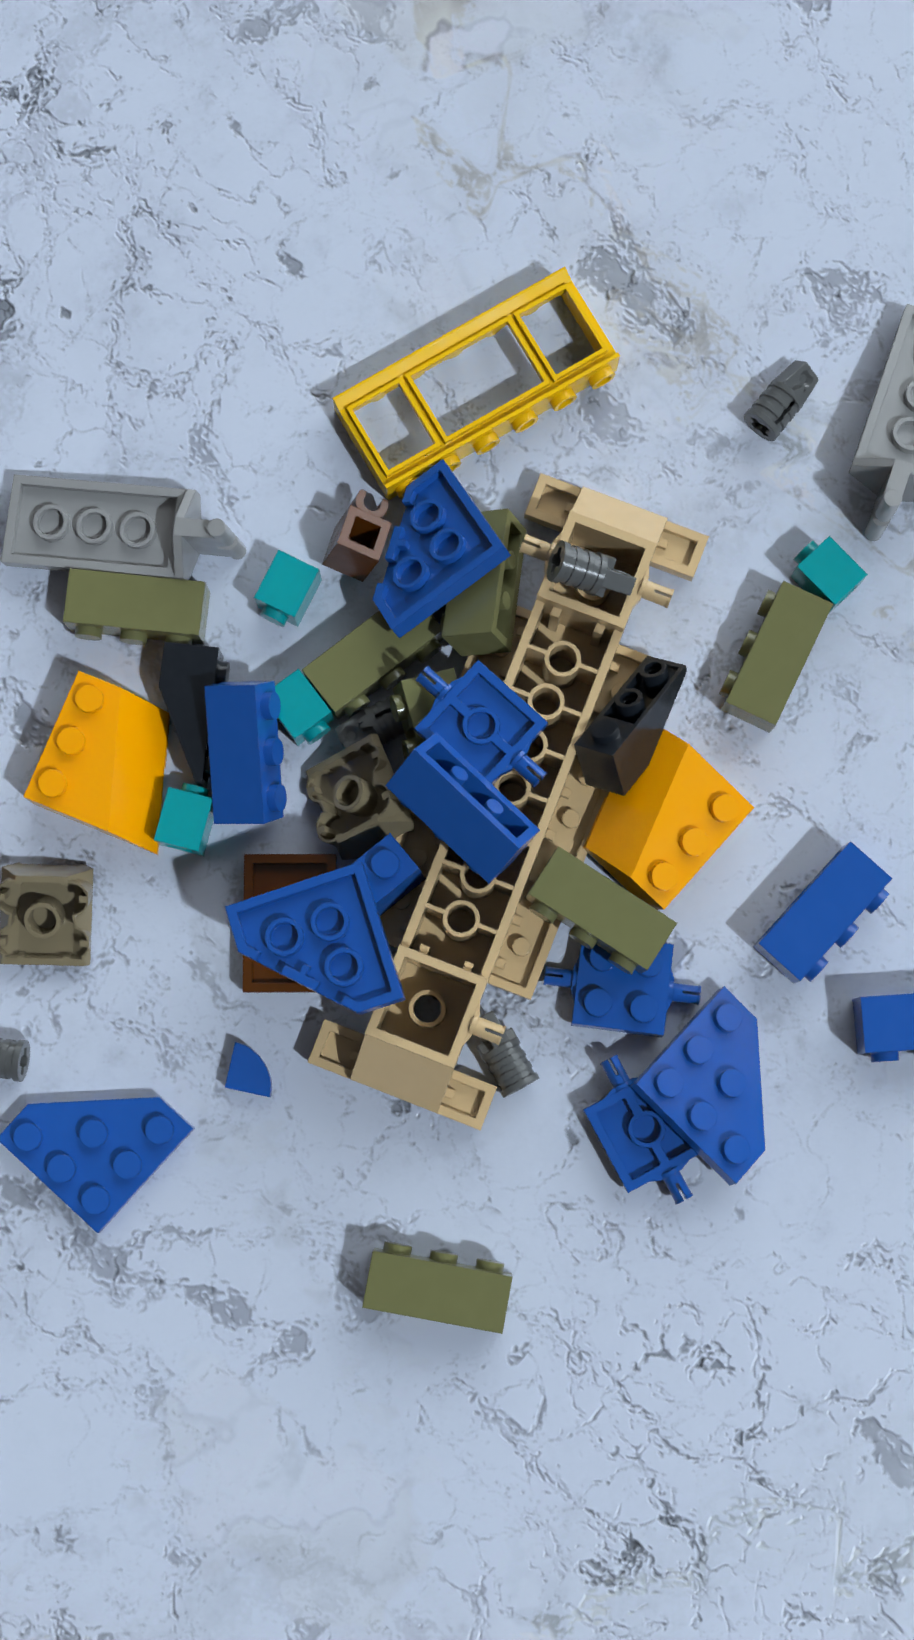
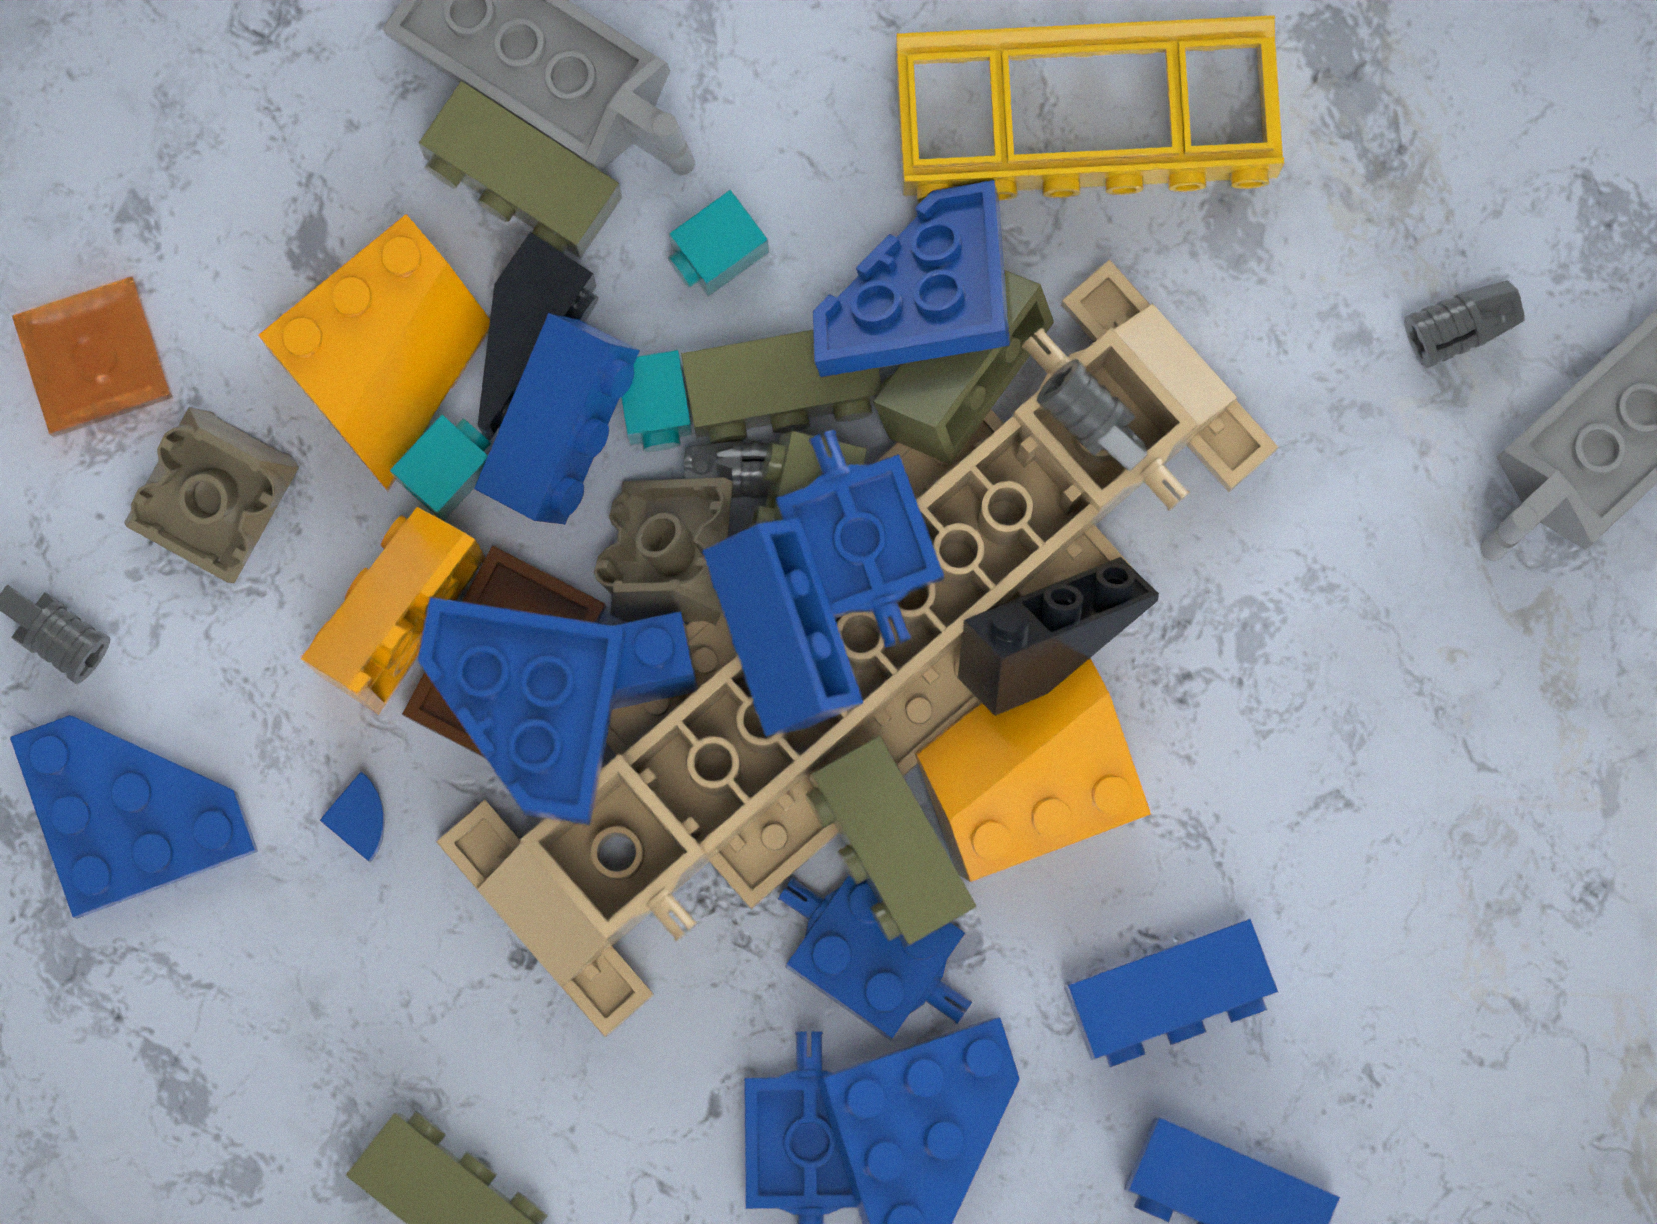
camera: 25 degrees right, 0 degrees up
(199, 927) = (384, 612): none -> light orange wedge
(358, 539) = (837, 226): brick -> none
(506, 1061) = (682, 967): dark grey hinge -> none
(774, 655) = (1281, 638): olive brick -> none
(827, 571) = (1403, 570): teal brick -> none

